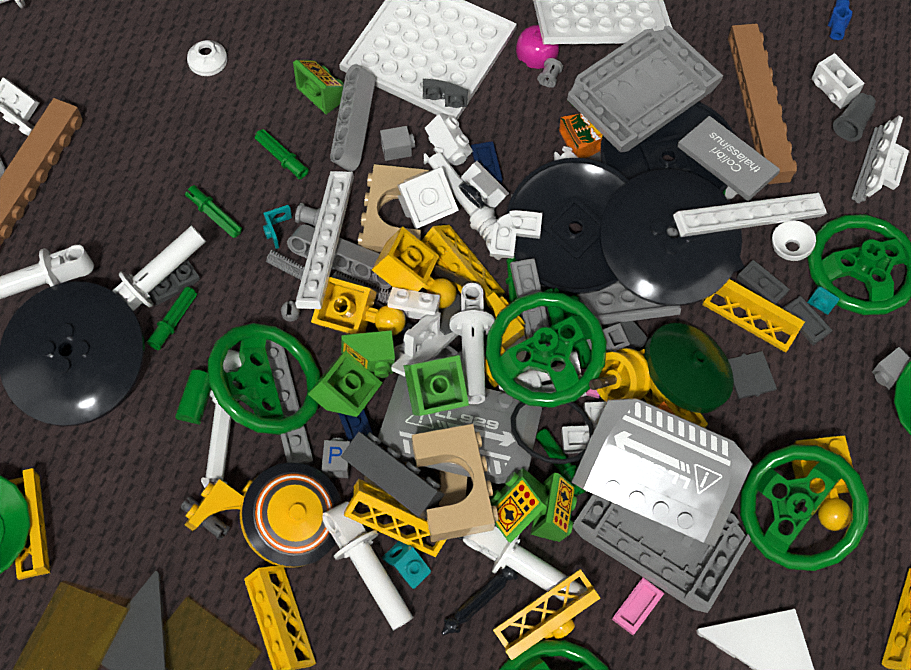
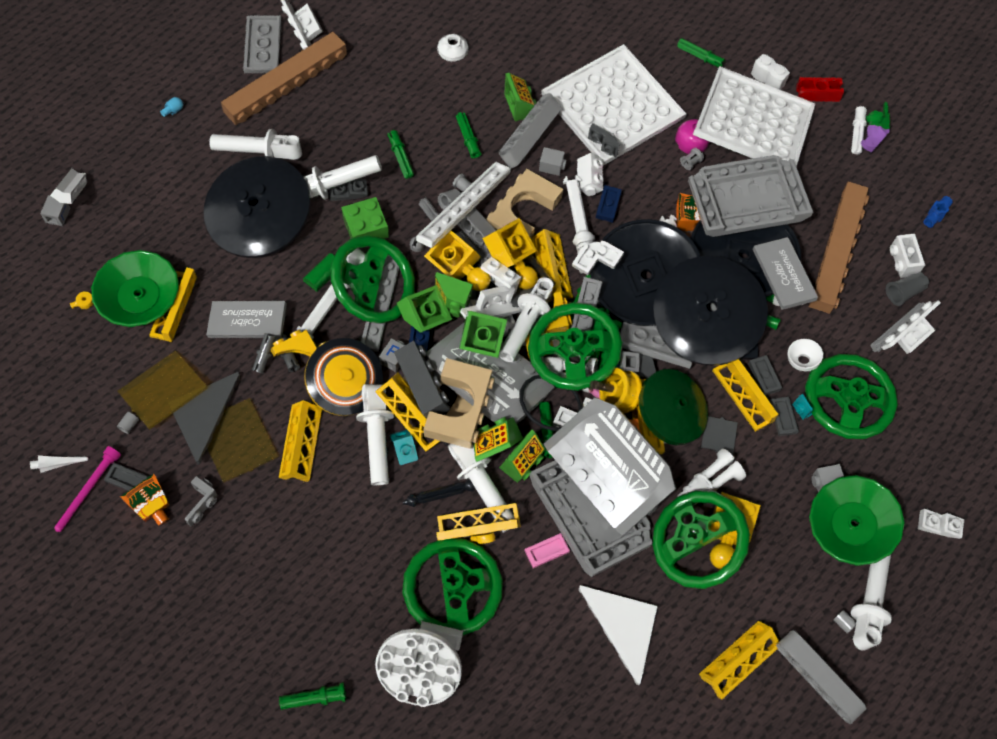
camera: 25 degrees right, 0 degrees up
(132, 500) = (246, 319): none -> light grey tile
(171, 319) = (331, 215): green axle -> none
(177, 532) = (263, 353): none -> dark grey pin
(214, 311) = (365, 219): none -> bright green brick
(270, 220) = (435, 177): teal bracket -> none
(426, 197) = (550, 207): white panel -> none
(482, 187) = (596, 216): white piece -> none
(749, 214) = (778, 320): white tile -> none
(762, 440) = (700, 481): none -> white piece

